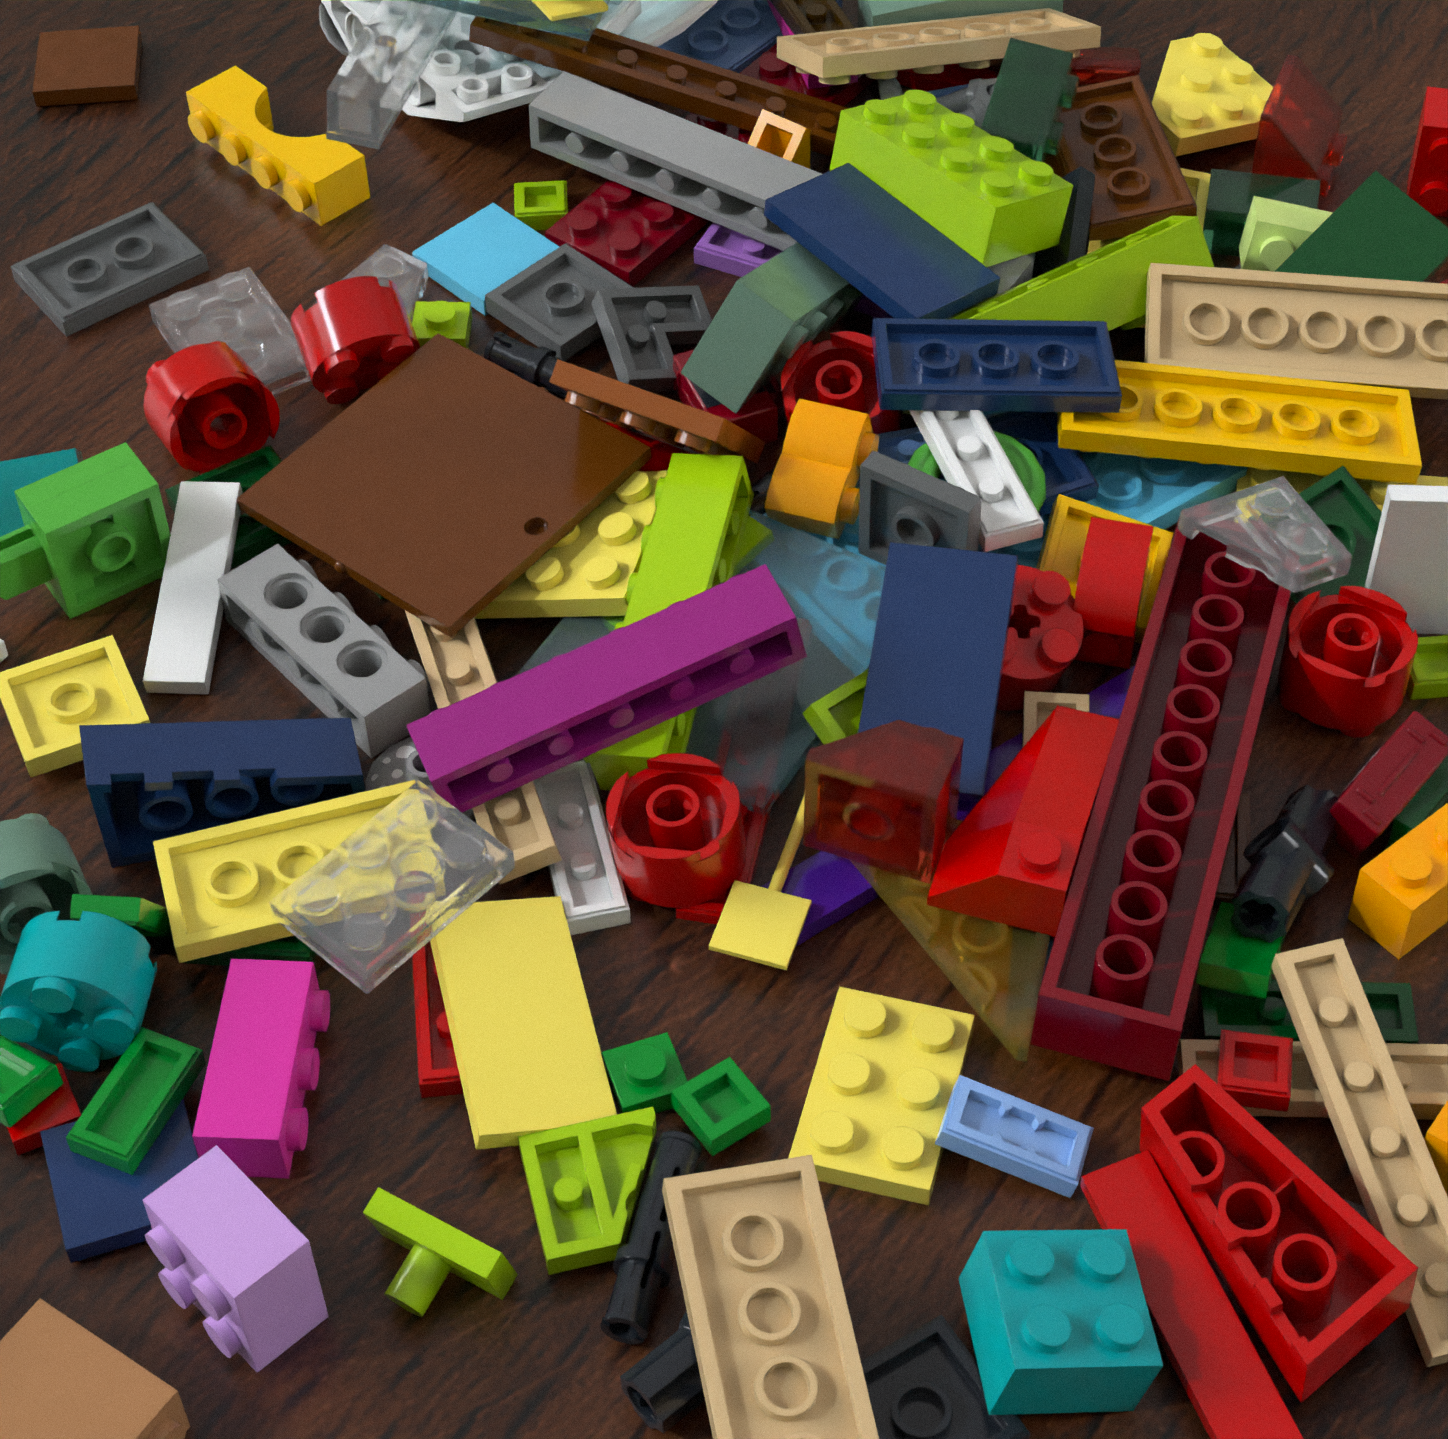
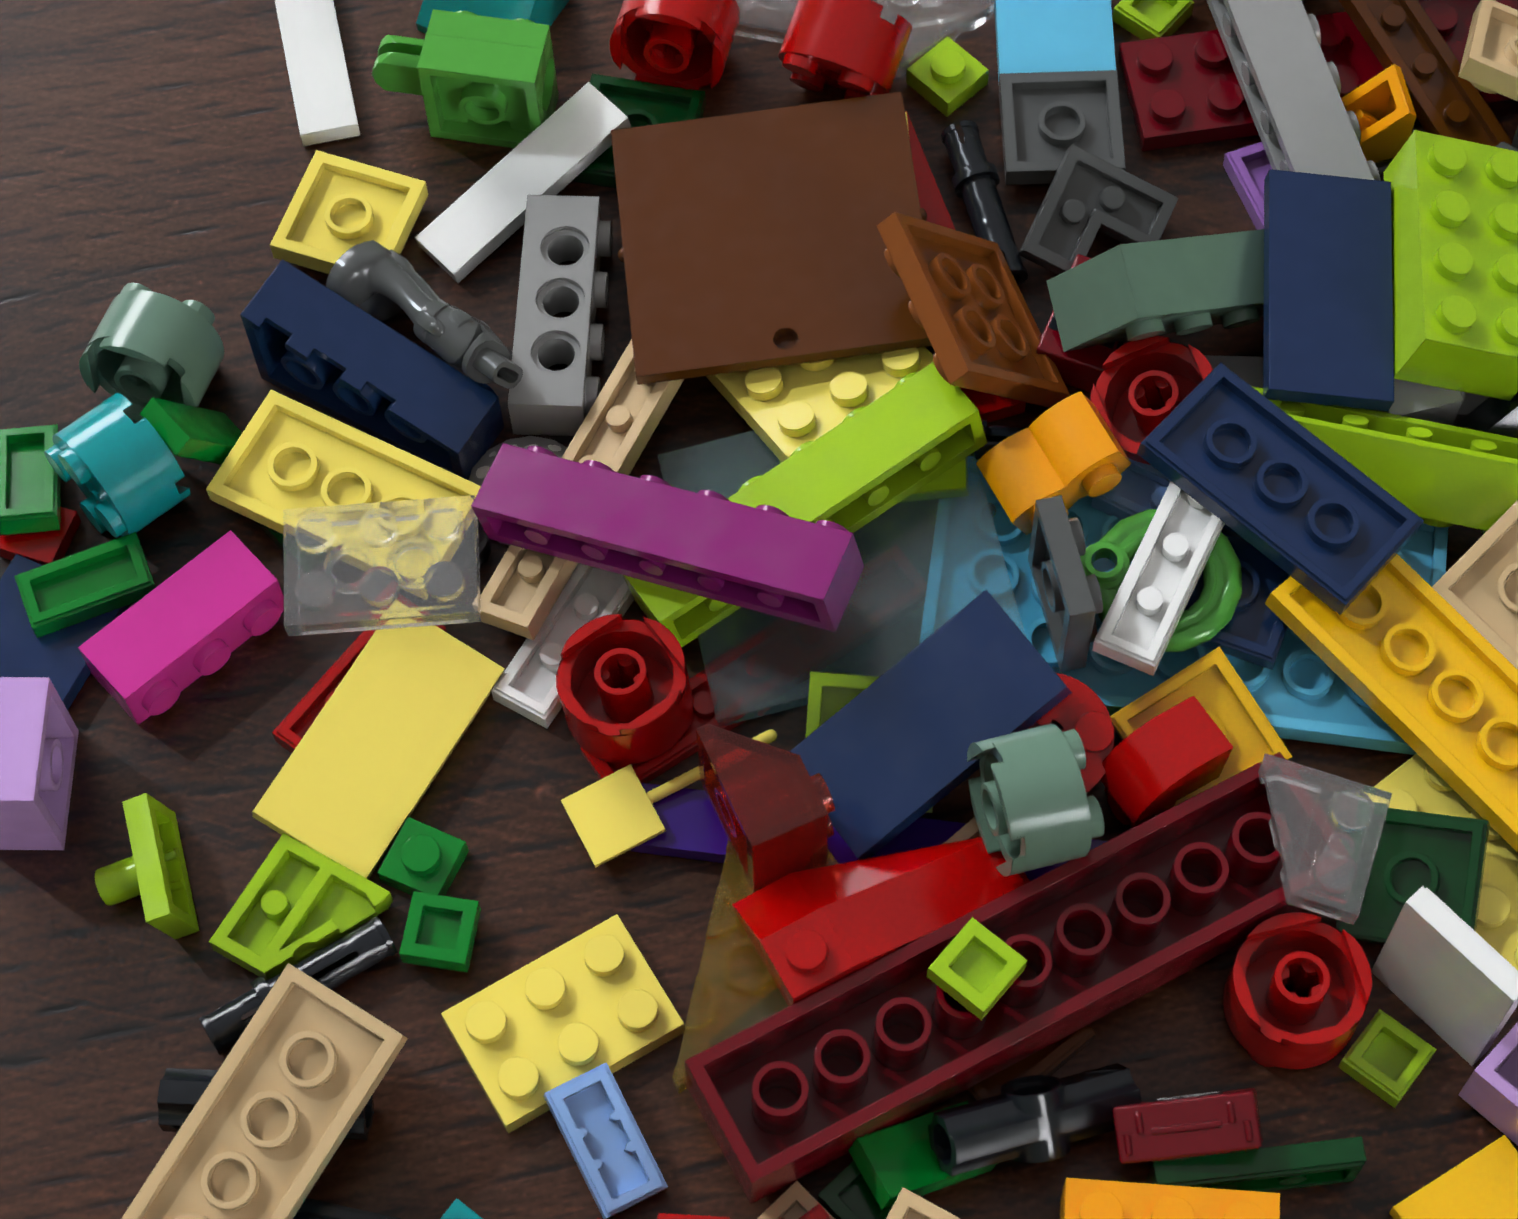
camera: 45 degrees right, 15 degrees up
(257, 695) = (387, 283): none -> dark grey piece
(1074, 641) = (1033, 798): none -> sand green brick
(1166, 768) = (976, 968): none -> lime plate

